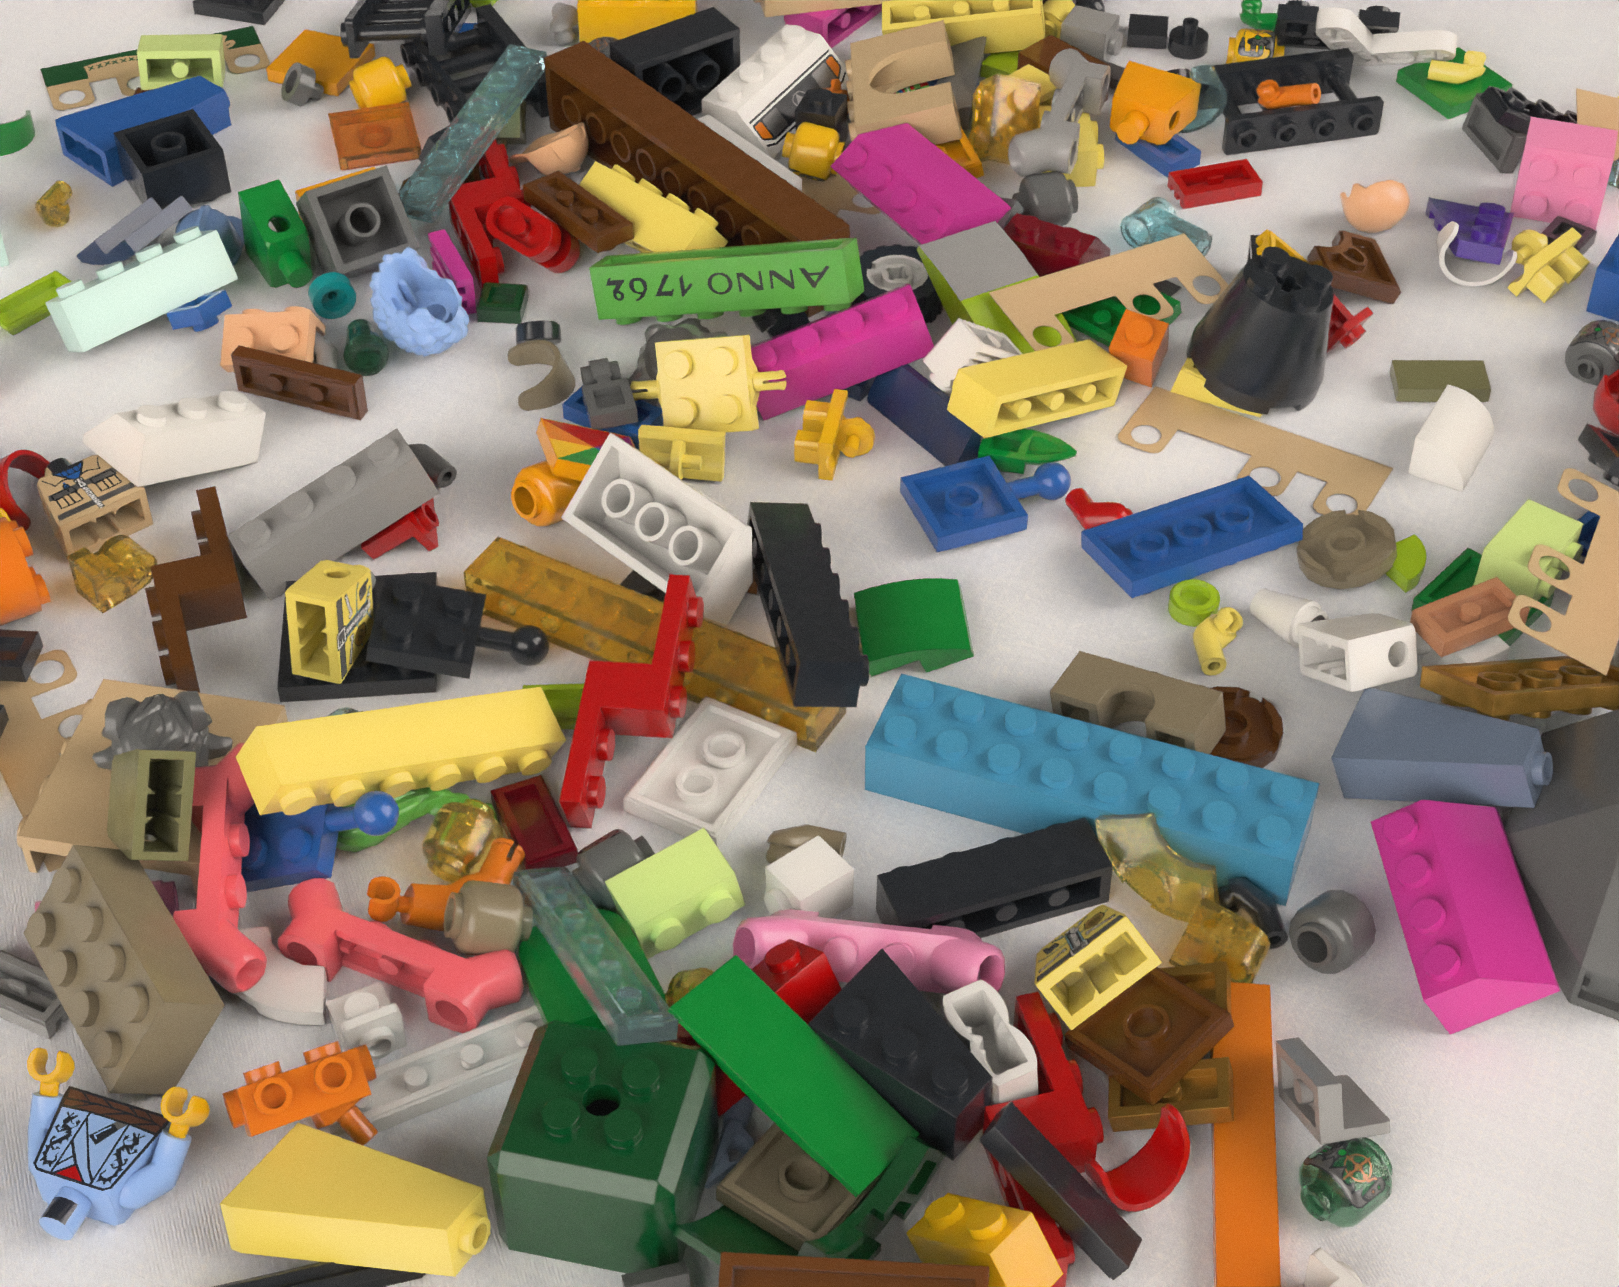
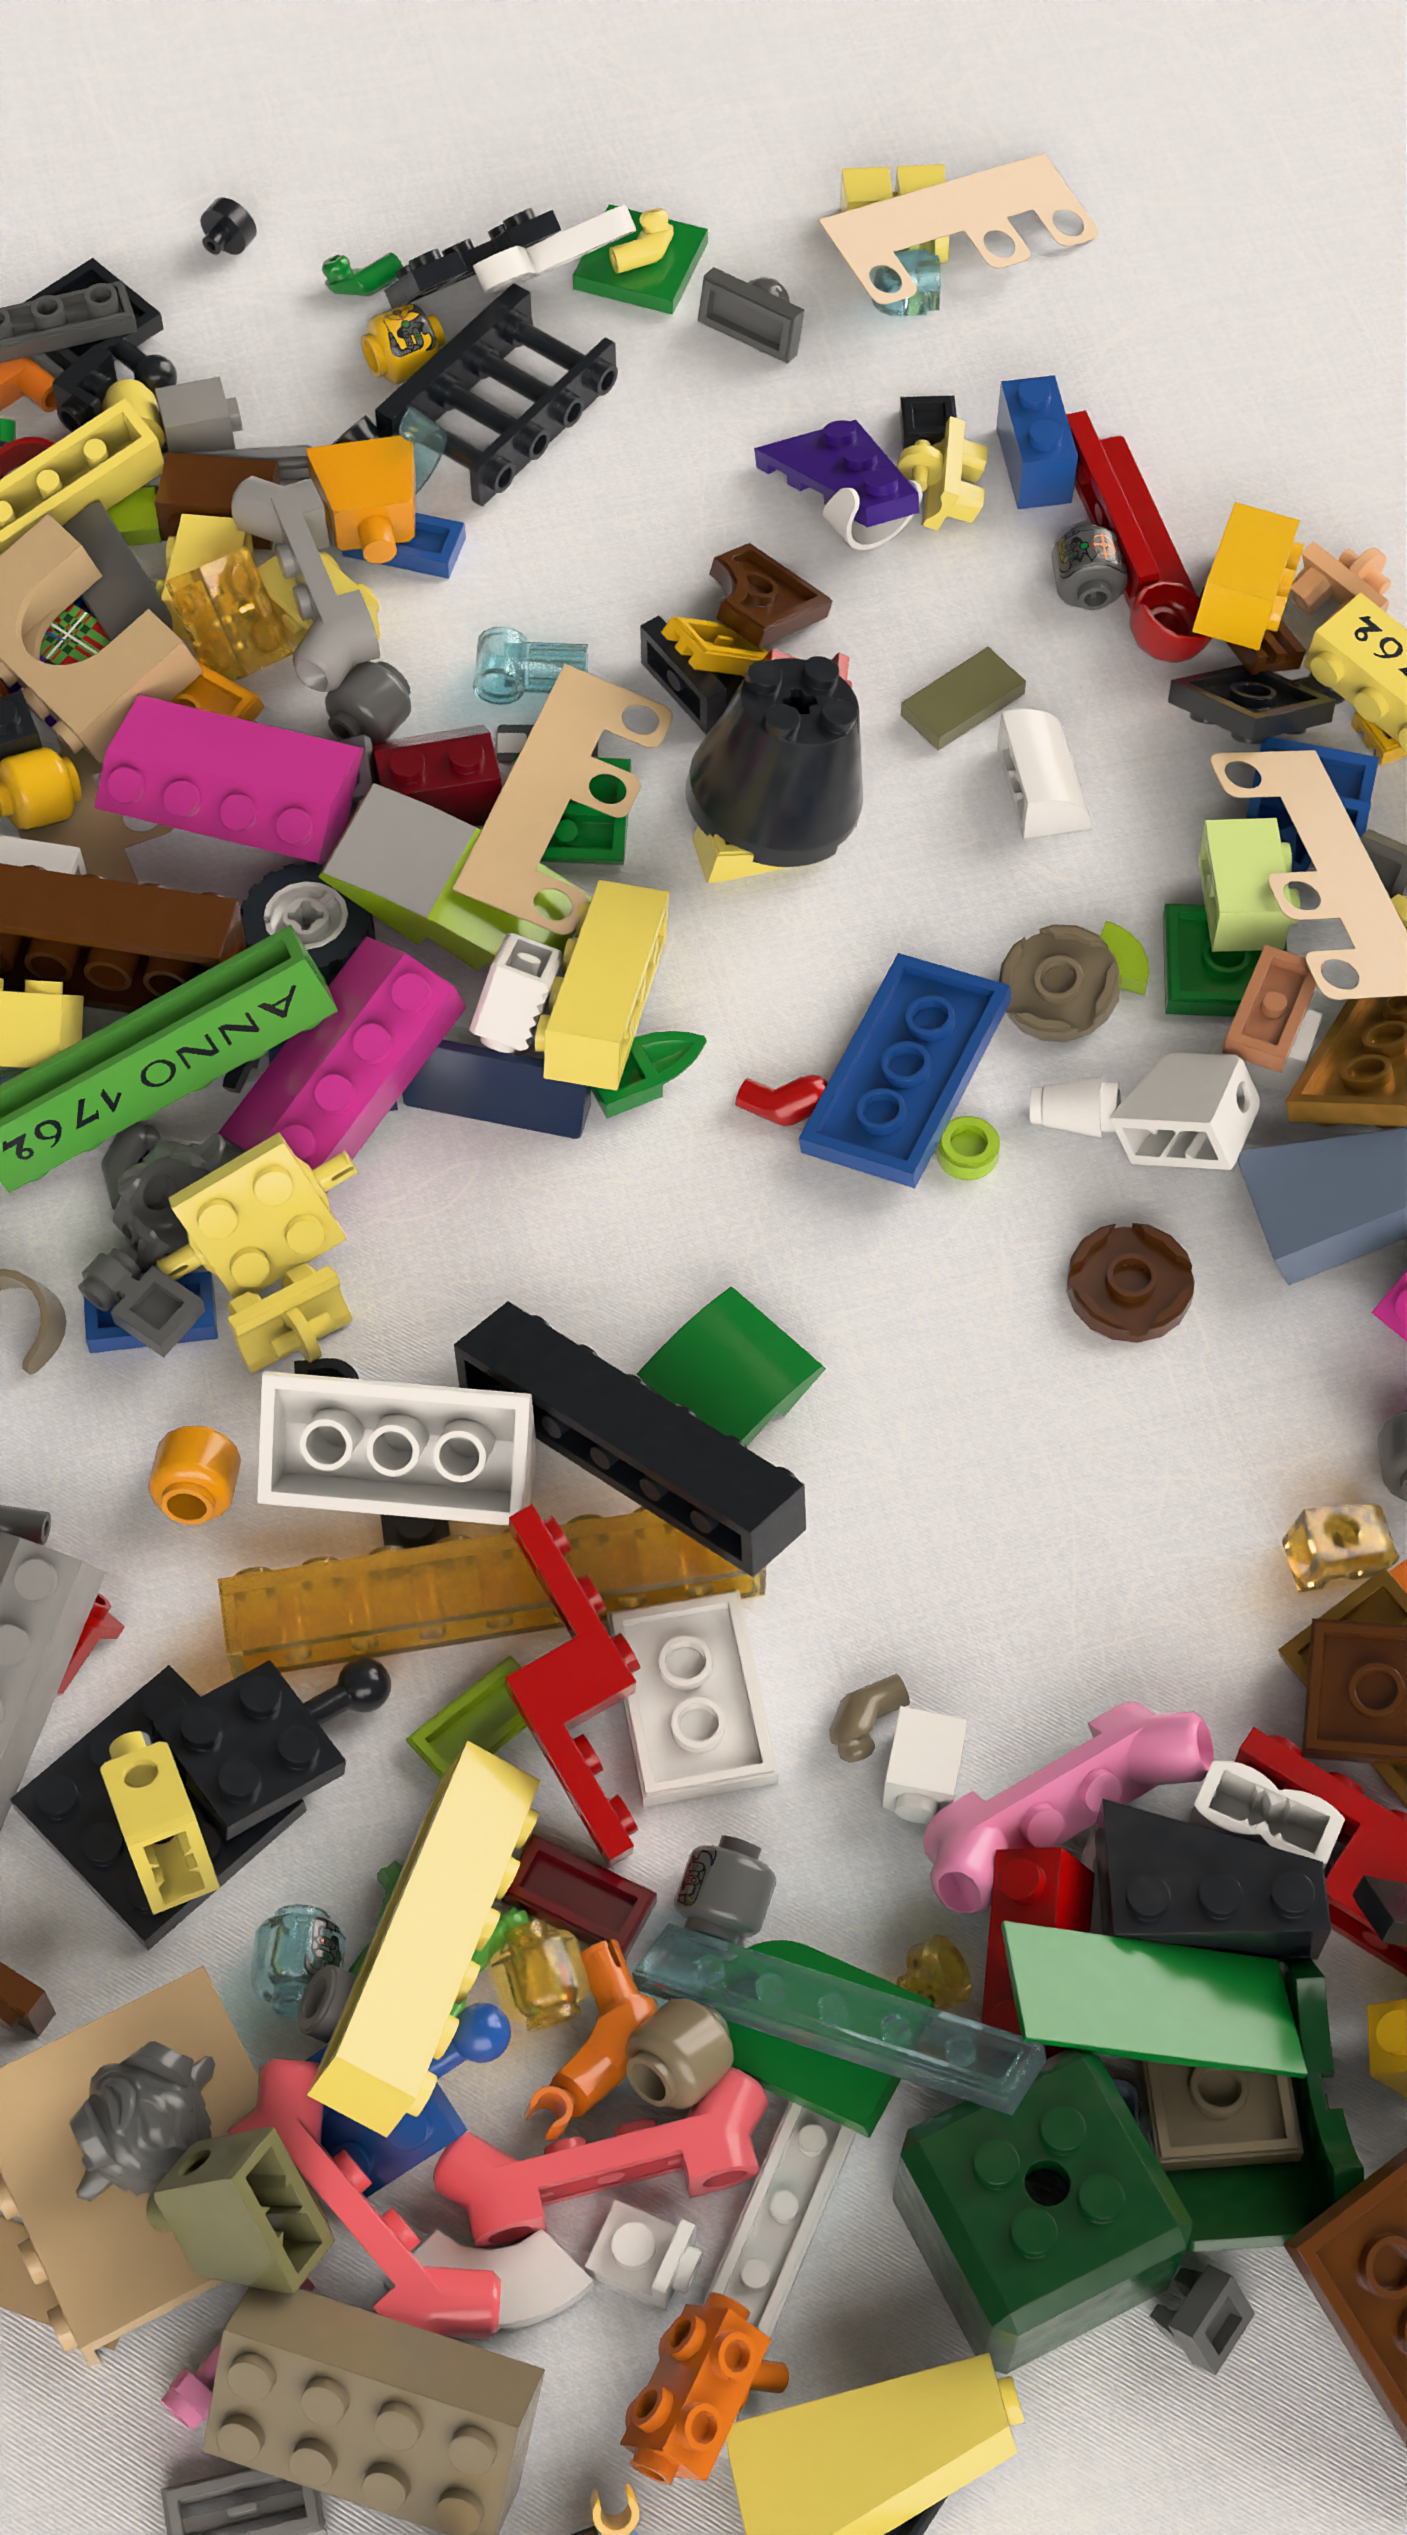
camera: 40 degrees left, 15 degrees up
(571, 447) = (196, 1394): tile -> none
(676, 893) = (818, 1873): yellowish green brick -> none
(828, 433) = (436, 1204): yellow hips -> none
(975, 502) = (649, 1175): blue plate -> none
(1000, 882) = (1091, 1634): black brick -> none
(1045, 769) = (1077, 1452): dark azure brick -> none
(1092, 964) = (1275, 1659): light yellow torso -> none
(1117, 693) = (1099, 1307): dark tan arch -> none
(1140, 345) = (655, 853): orange brick -> none
(1147, 31) = (245, 369): black tile -> none
(1152, 866) = (1224, 1504): clear yellow tile -> none
(1188, 40) = (303, 359): black tile -> none
(1213, 636) = (1024, 1181): light yellow arm -> none
(1215, 183) = (521, 564): red tile -> none
(1262, 908) = (1329, 1470): black arm -> none
(1266, 445) = (868, 889): tan piece -> none
(1276, 97) = (501, 399): orange arm -> none
(1375, 207) = (721, 500): light nougat hair -> none
(1515, 110) = (792, 278): black tile -> none
(1563, 172) = (880, 342): bright pink brick -> none

